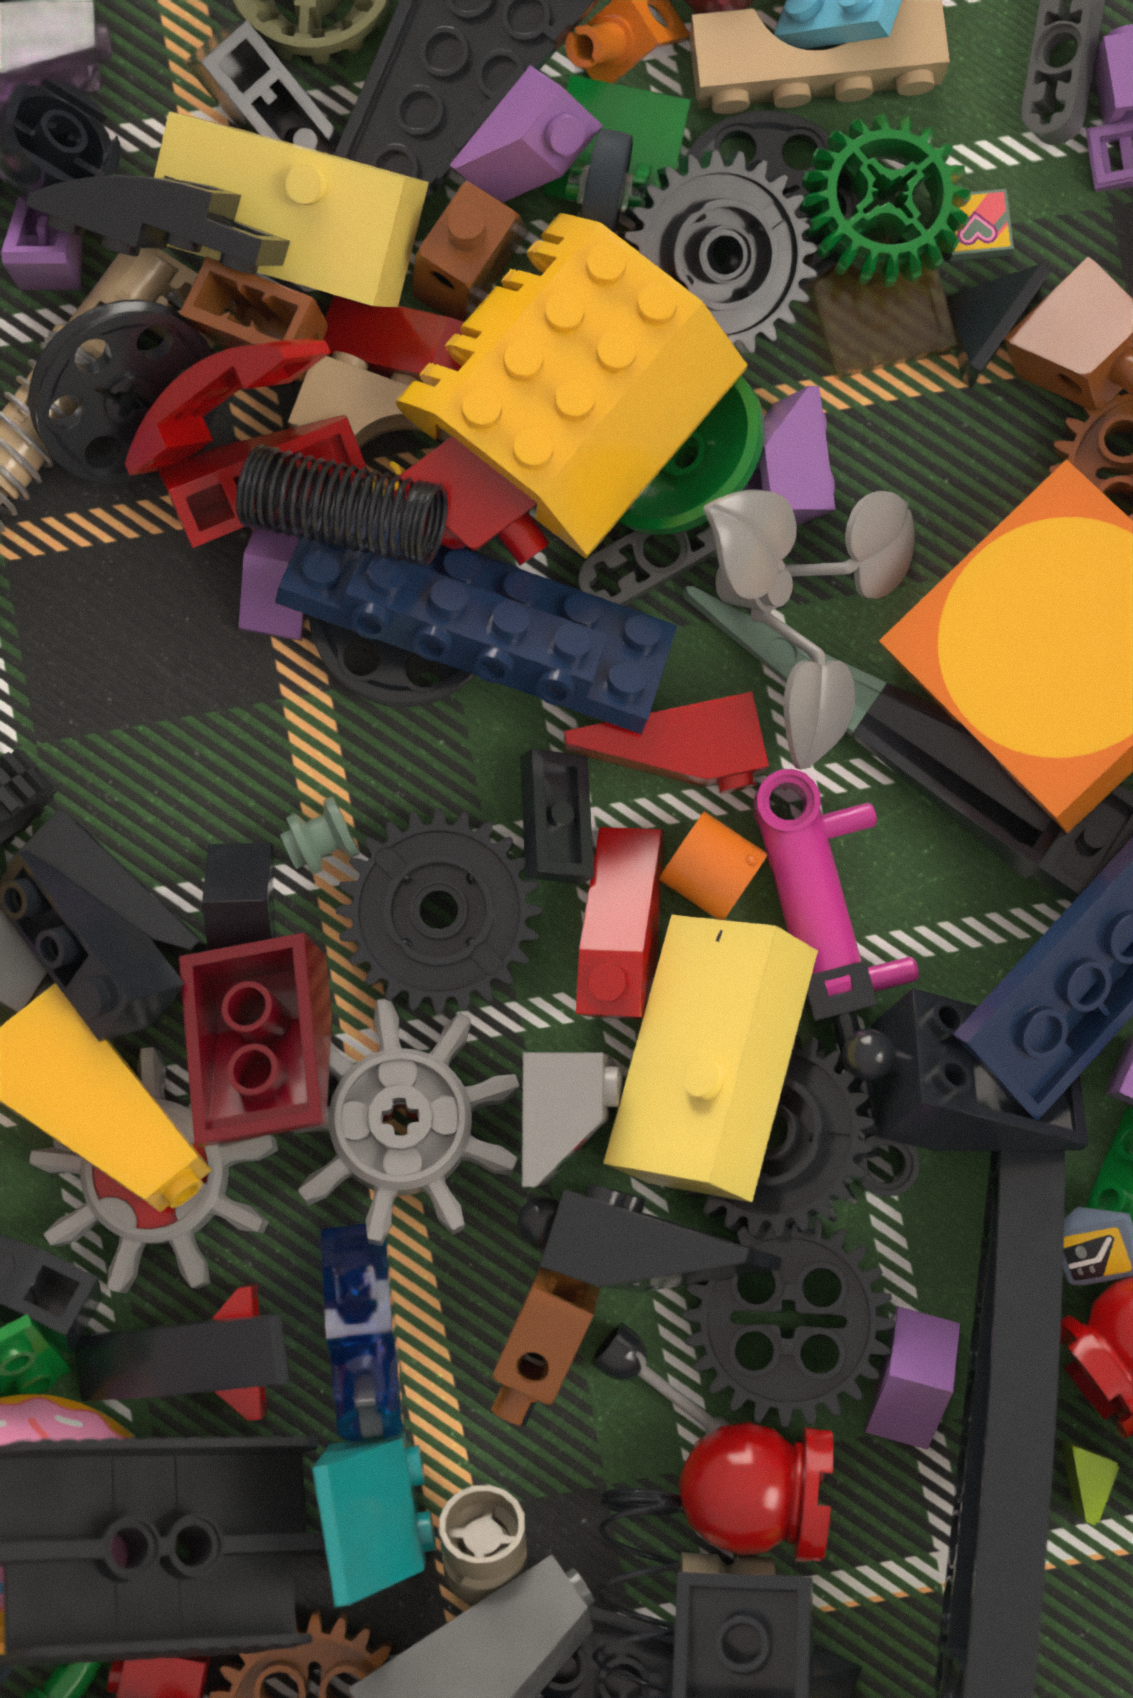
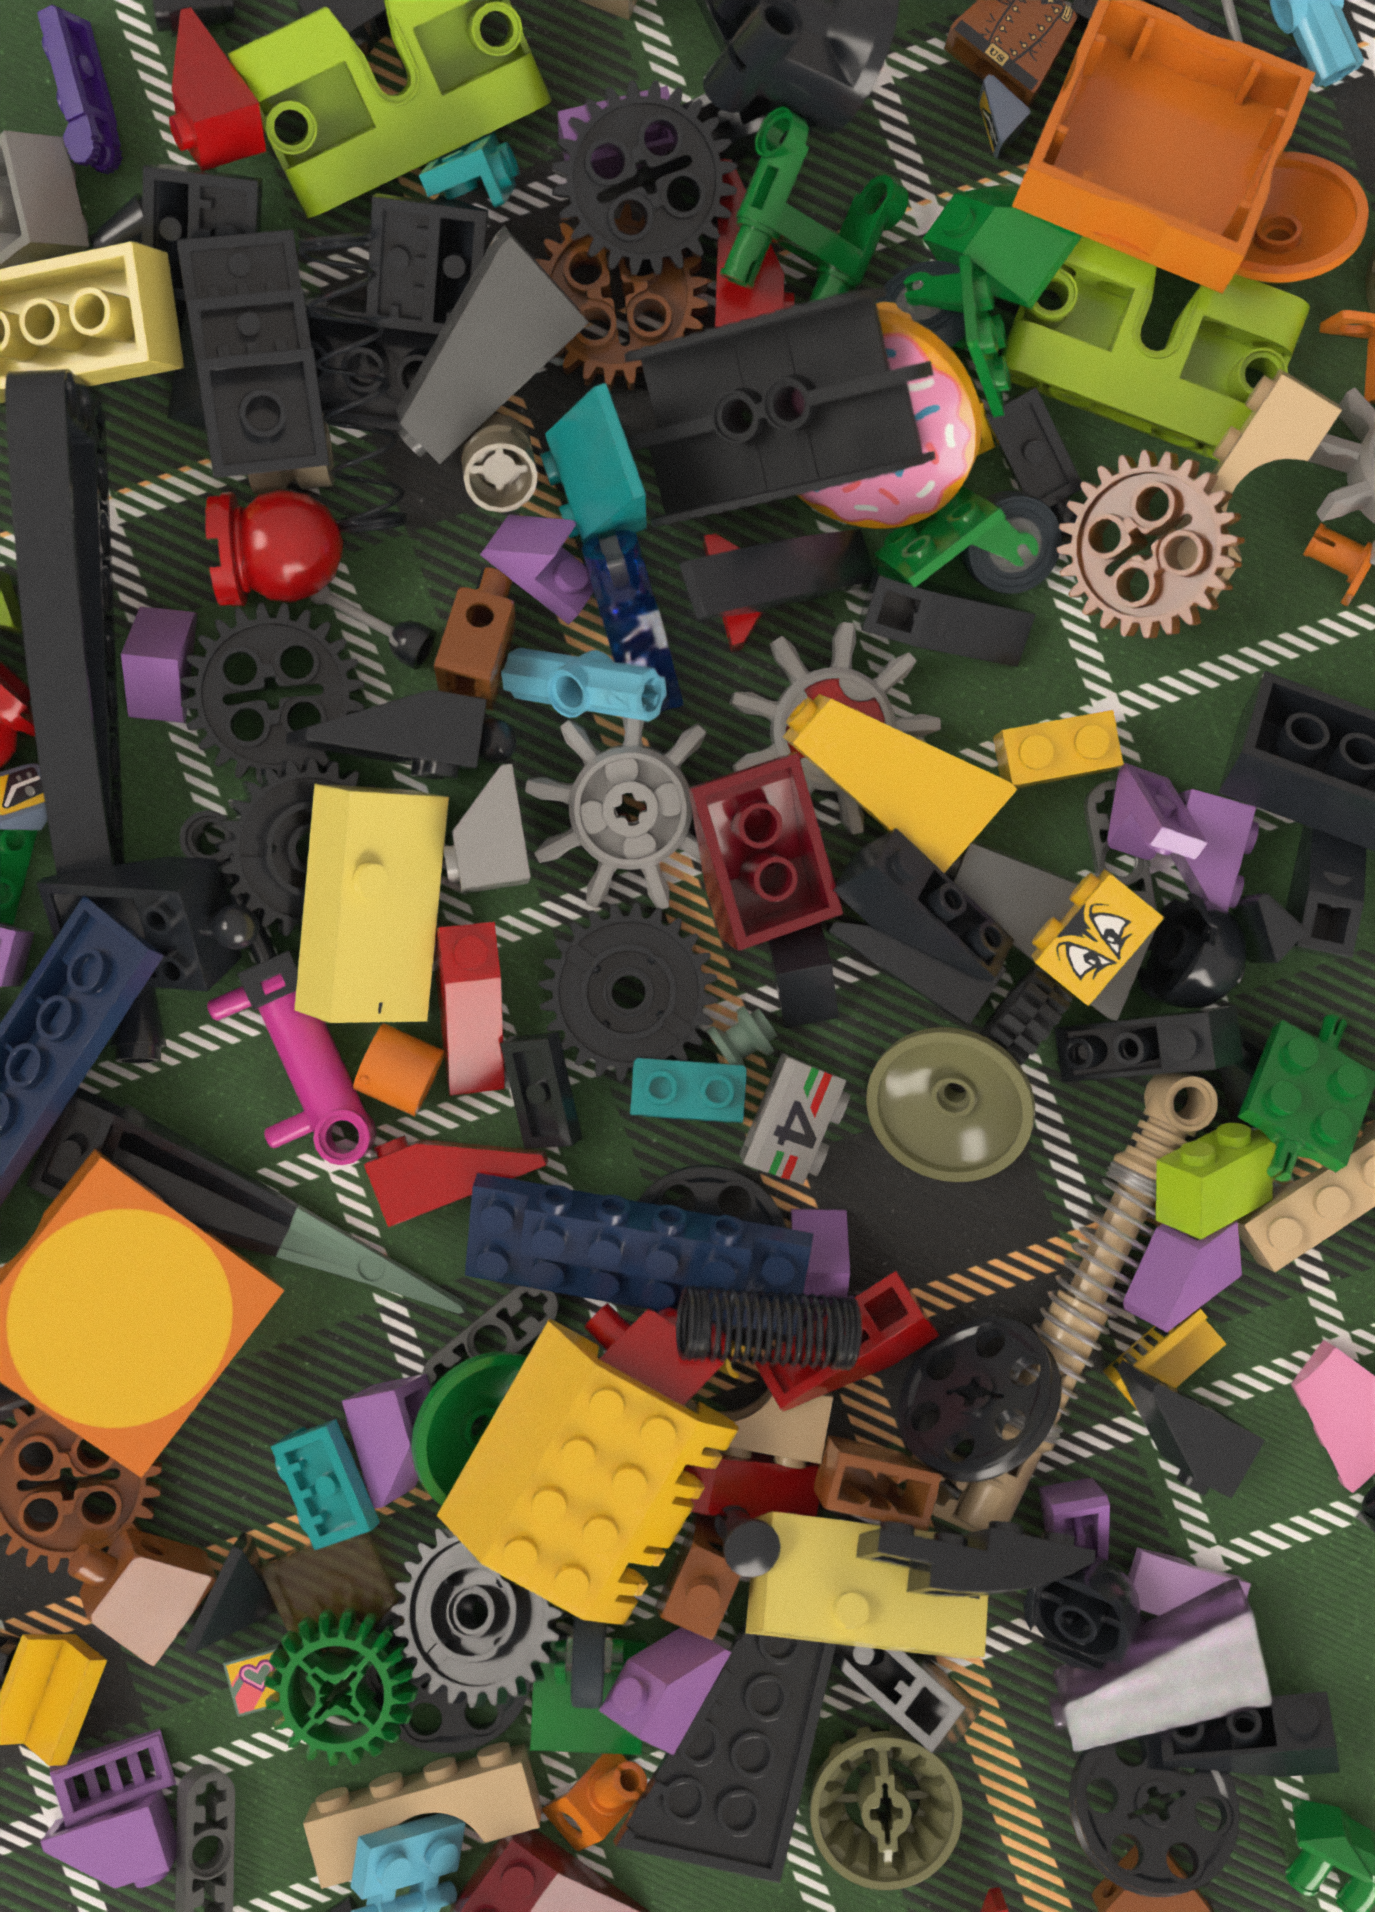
camera: 175 degrees right, 5 degrees up
(102, 694) = (944, 1130): none -> olive dish
(175, 421) = (929, 1379): red slope -> none
(278, 736) = (794, 1119): none -> light grey slope
(389, 787) = (688, 1090): none -> teal bracket
(406, 275) = (748, 1543): none -> black pin
(427, 1269) = (584, 683): none -> medium azure piece
(460, 1426) = (532, 557): none -> medium lavender slope
(751, 539) = (403, 1332): light grey plant -> none
(869, 421) = (324, 1484): none -> teal bracket
(996, 954) = (140, 1032): none -> black cone

